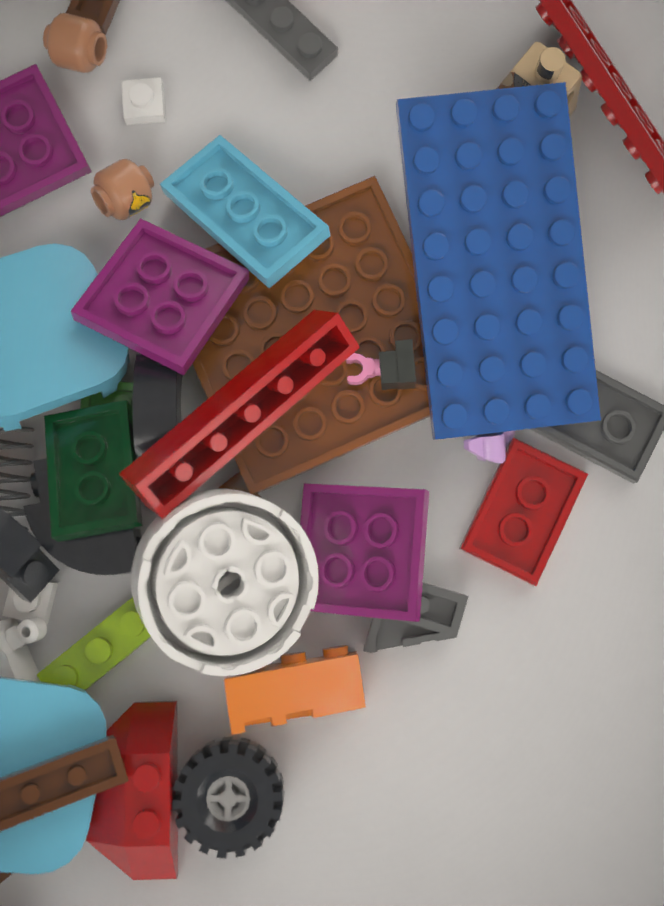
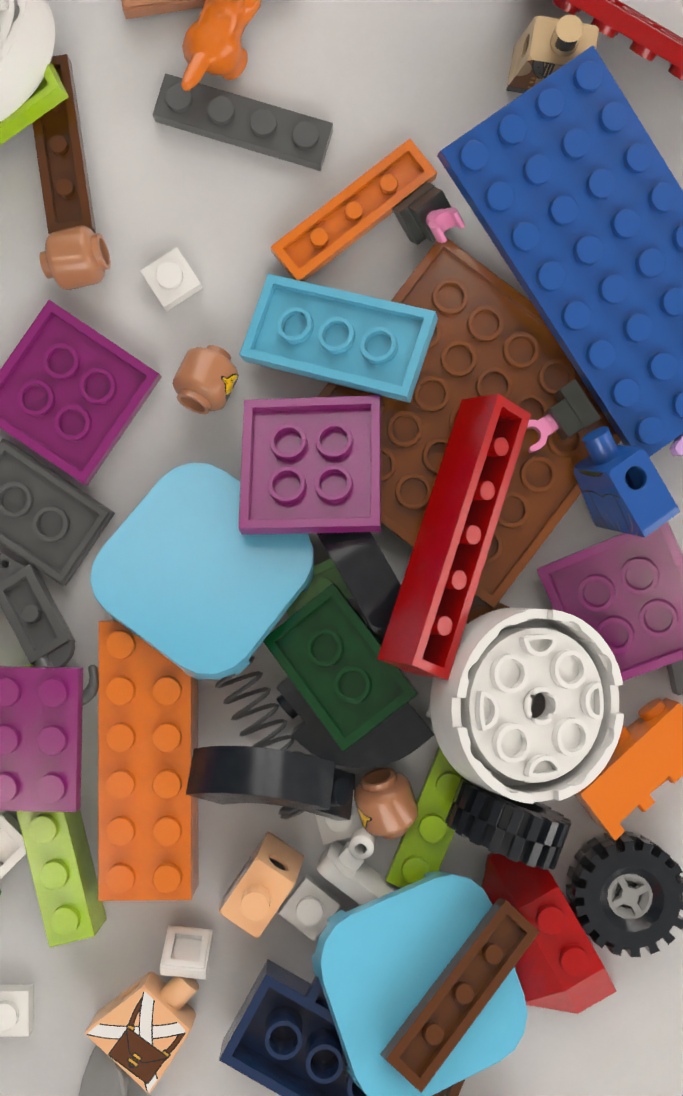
camera: 25 degrees left, 5 degrees up
(71, 608) = (386, 803): none -> nougat head
(153, 679) = (508, 826): none -> black wheel
(316, 123) = (353, 212): none -> orange plate
(370, 153) = (427, 215): none -> pearl dark grey piece
(405, 446) = (622, 486): none -> blue torso

